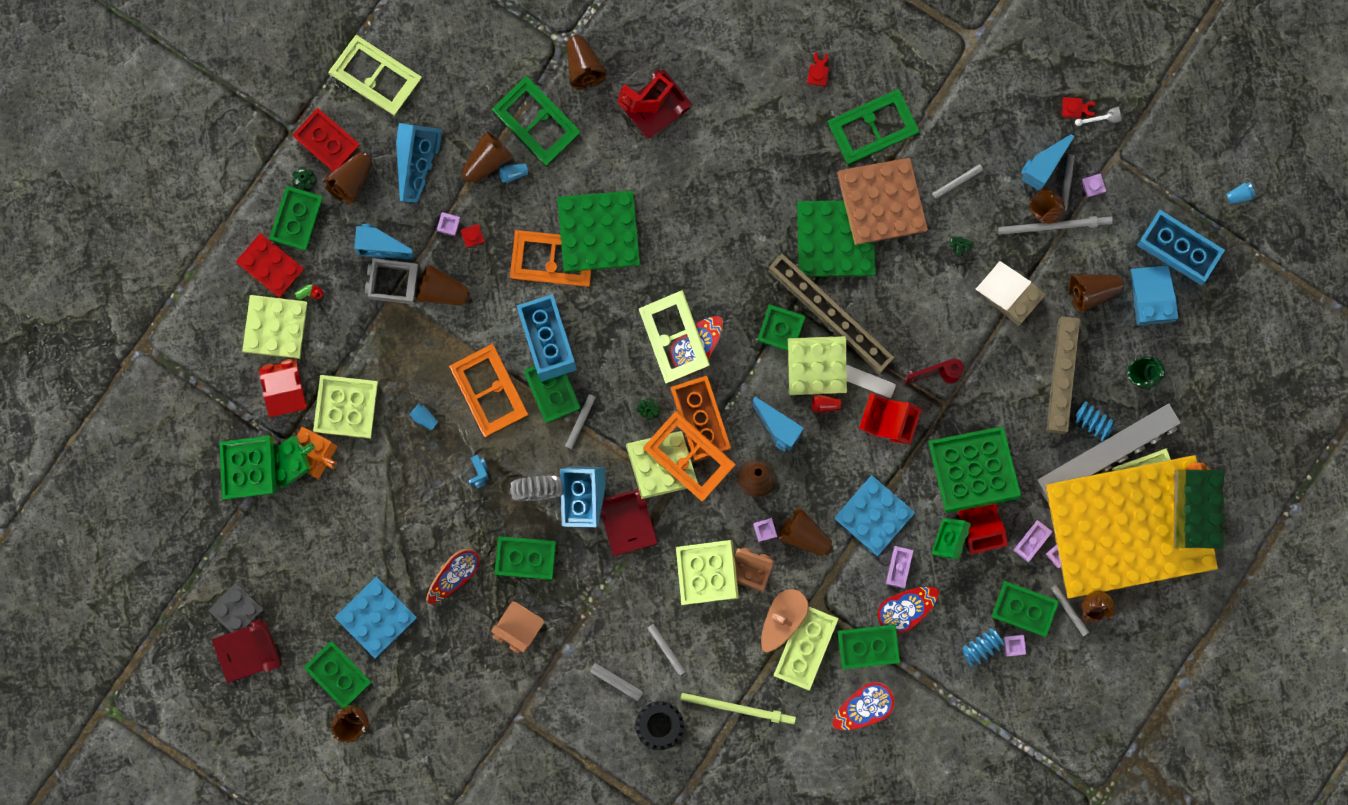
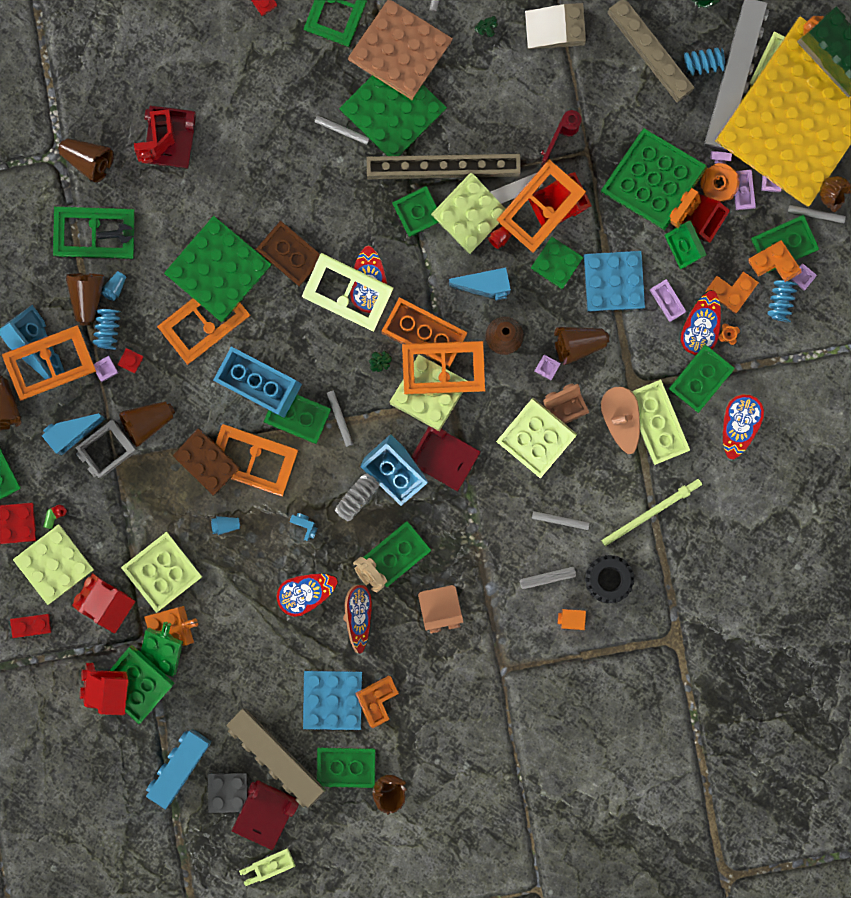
camera: 40 degrees left, 5 degrees up
(213, 692) = (269, 866): none -> yellowish green hinge
(216, 354) = (30, 625): none -> red plate
(218, 557) = (176, 772): none -> dark azure brick
(221, 449) = (104, 690): none -> red piece
(294, 618) = (276, 758): none -> dark tan brick
(405, 643) = (372, 698): none -> orange plate
(420, 163) = (42, 345): none -> orange door
(432, 521) = (305, 593): none -> shield
(454, 359) = (206, 461): none -> reddish brown plate
(477, 196) = (106, 329): none -> dark azure piece
(490, 552) = (368, 574): none -> tan plate
(550, 136) = (116, 234): none -> black bar
(604, 728) = (572, 619): none -> orange brick
(660, 269) = (289, 253): none -> reddish brown plate
(784, 218) = (341, 129): none -> light grey bar
(845, 462) = (556, 263): none -> green plate
(875, 426) = (555, 217): none -> orange door
(926, 636) = (729, 329): none -> orange plate
(954, 612) = (733, 296): none -> orange plate
(981, 511) = (689, 204): none -> orange plate
(1008, 611) = (776, 257): none -> orange plate
(1025, 528) = (730, 179): none -> orange plate
(1038, 501) = (720, 157): none -> lavender plate

